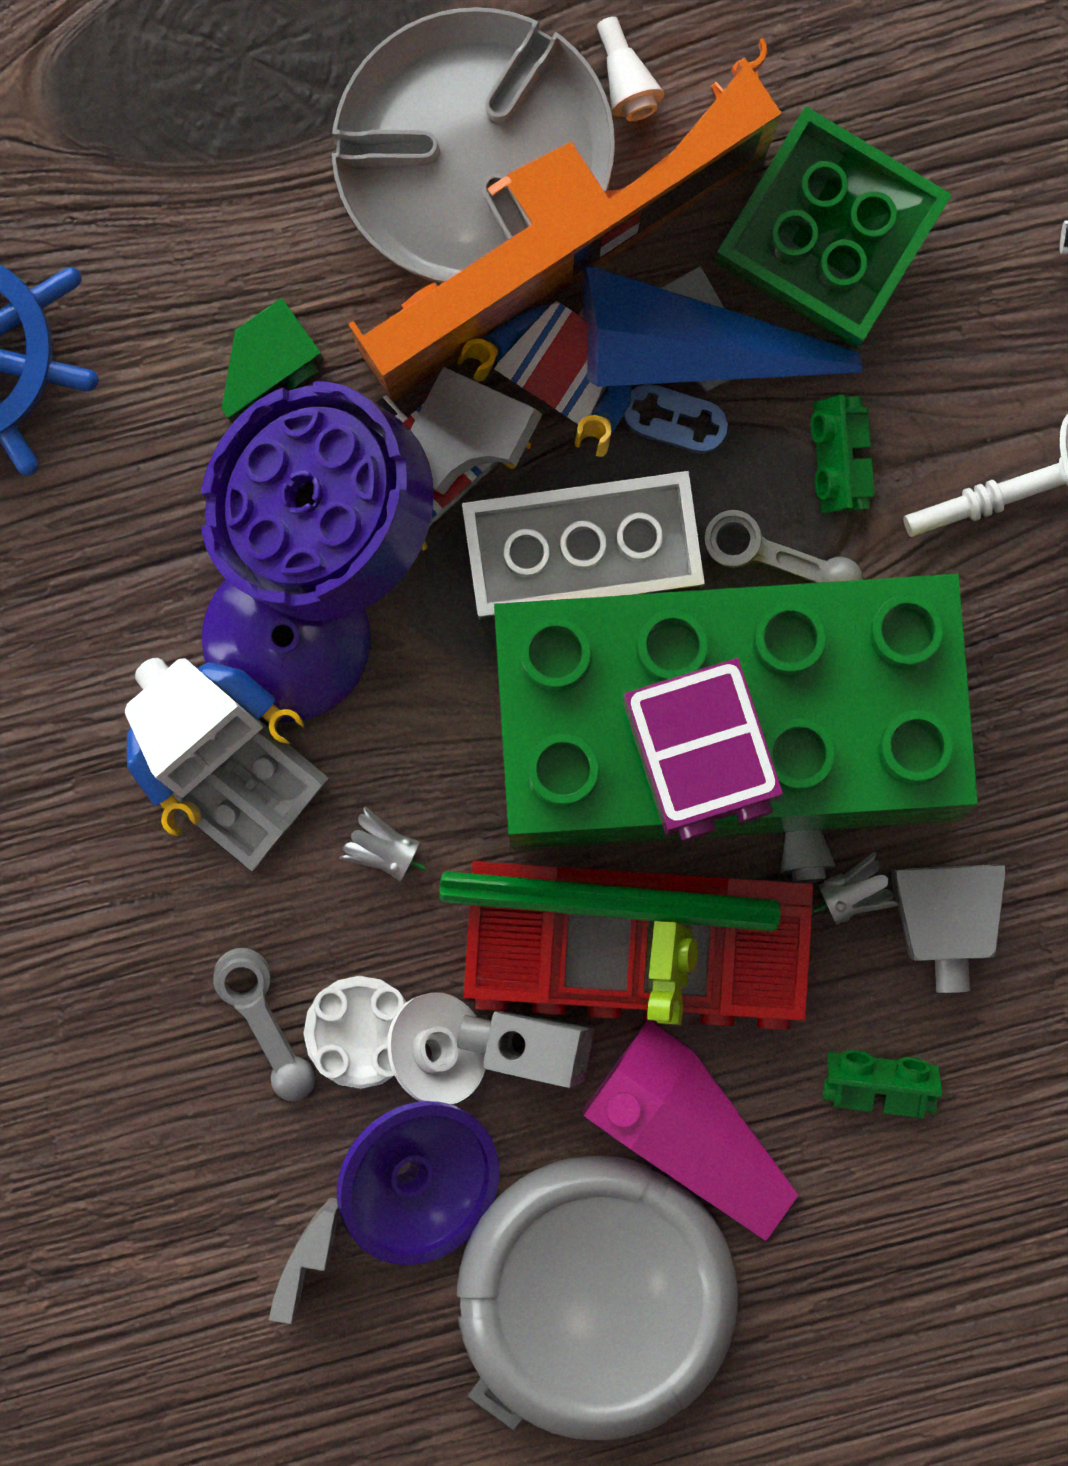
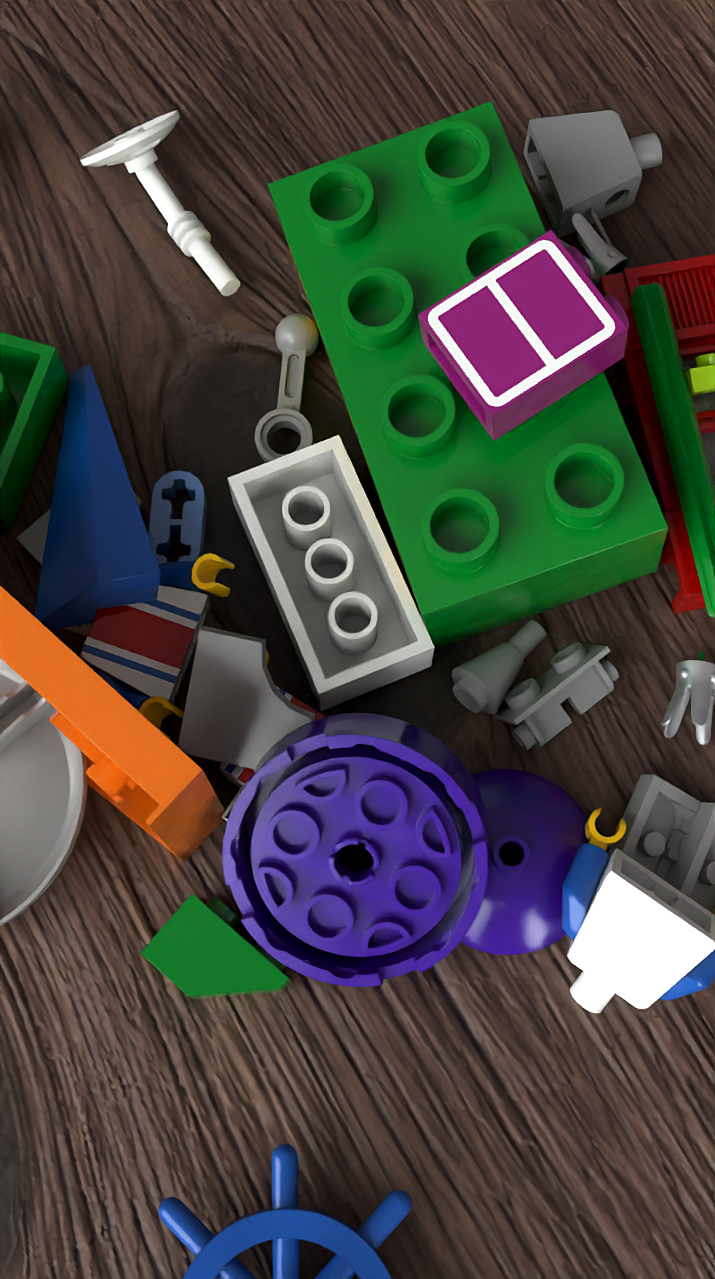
camera: 105 degrees left, 15 degrees down
(415, 700) = (574, 677): none -> light grey hinge
(453, 668) = (488, 677): none -> light grey cone
(837, 428) = (170, 371): green hinge -> none

